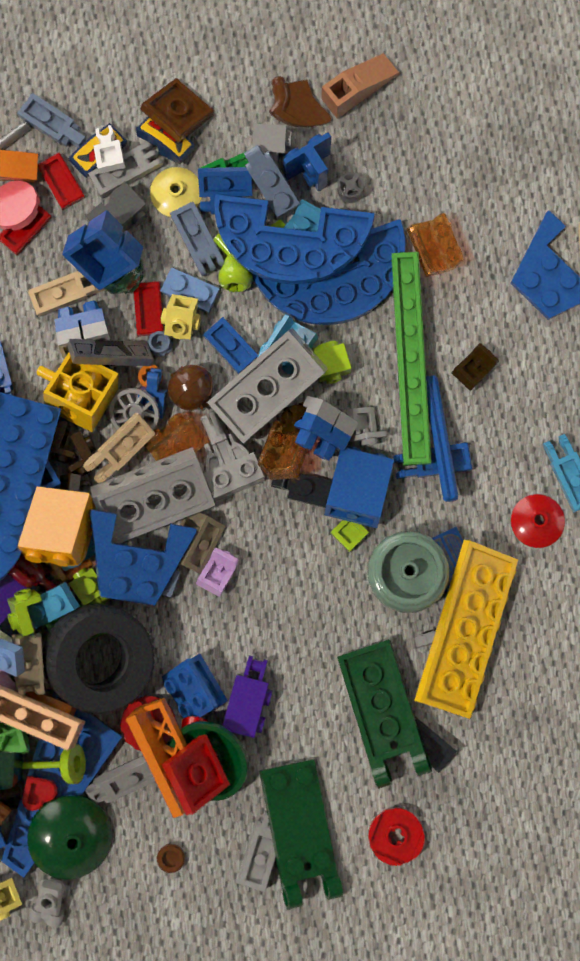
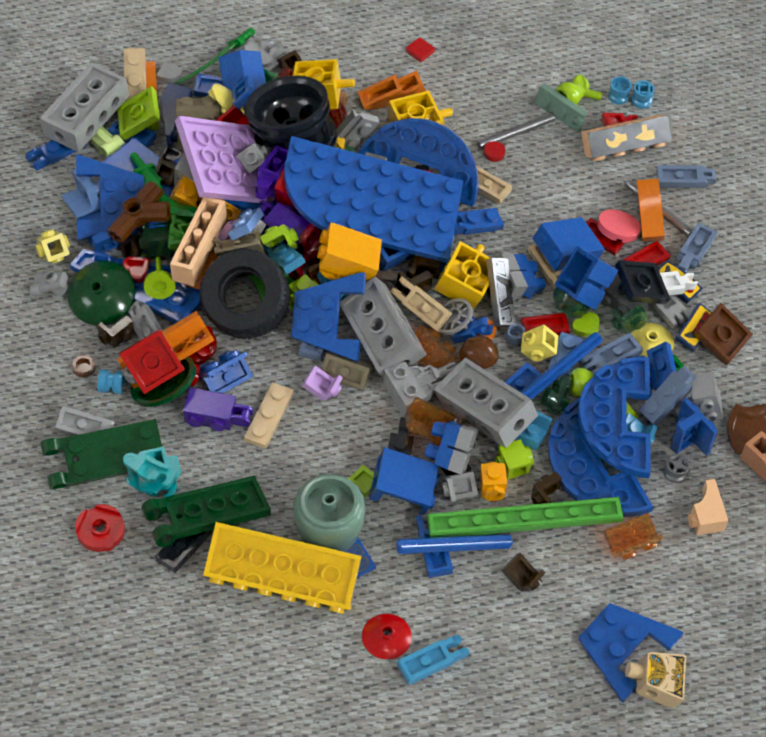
camera: 80 degrees right, 25 degrees down
(41, 267) = (561, 237): none -> blue brick
(114, 187) = (641, 282): none -> black hinge
(129, 811) = (118, 333): none -> dark brown bracket
(153, 261) = (586, 325): none -> lime tile
(154, 205) = (631, 321): none -> clear green bracket
(199, 825) = (109, 381): none -> dark azure wheel
(217, 298) = (562, 365): none -> blue axle
(252, 306) = (555, 397): none -> clear green plate
(253, 637) = (268, 415): none -> tan plate
(333, 771) = (153, 471): none -> teal piece
(360, 388) = (493, 481): none -> light orange brick
(366, 331) = (544, 487): none -> dark brown bracket
(407, 159) = (709, 514): none -> light nougat arch

